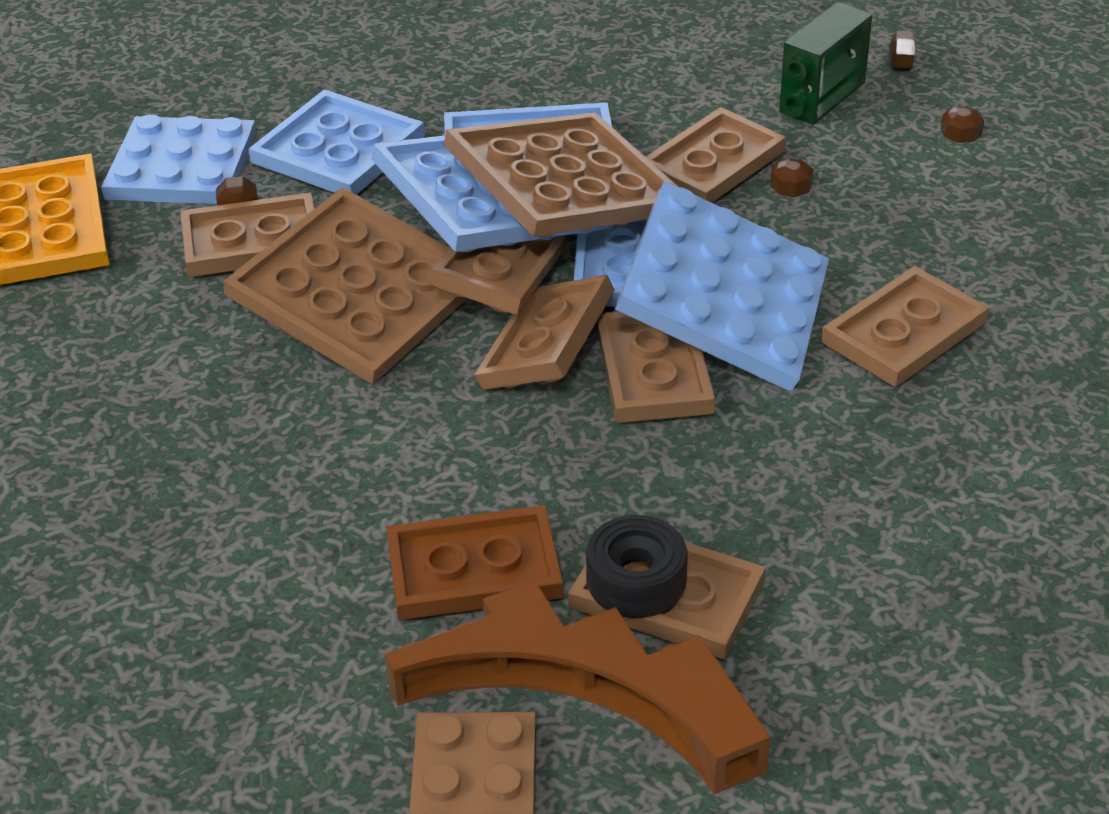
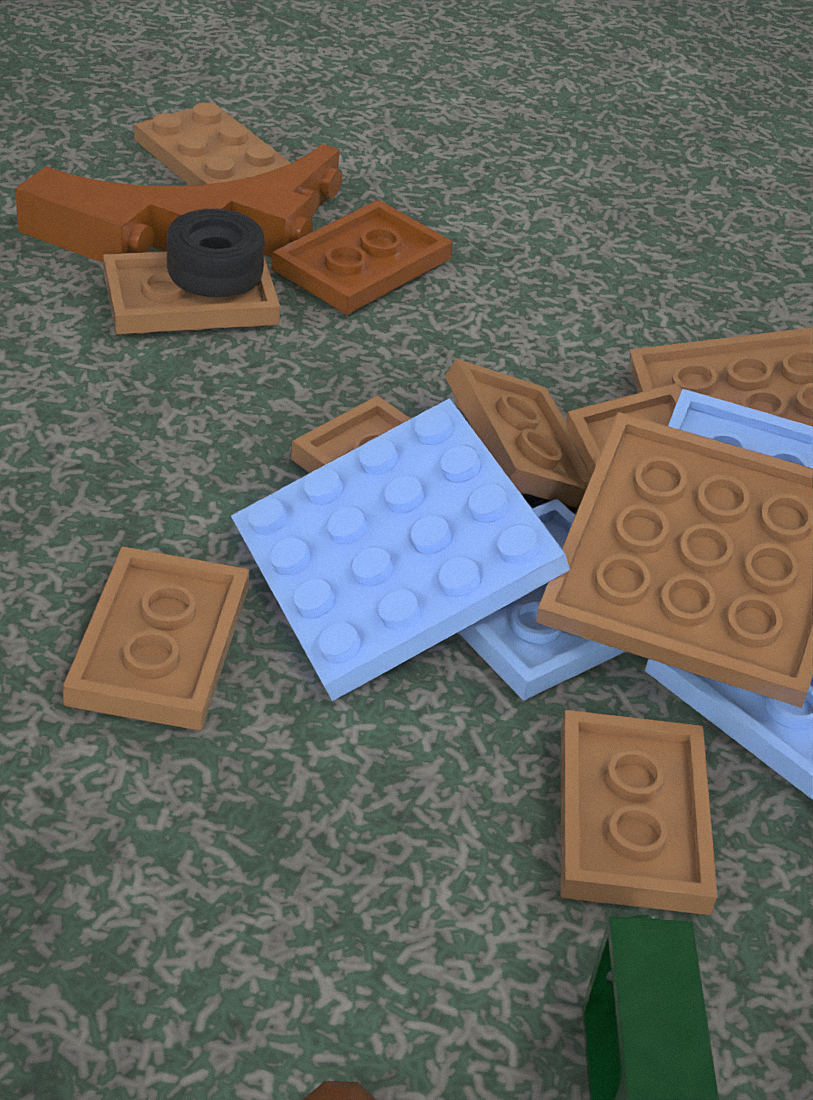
camera: 135 degrees right, 0 degrees up
(792, 177) = (500, 838): reddish brown tile -> none

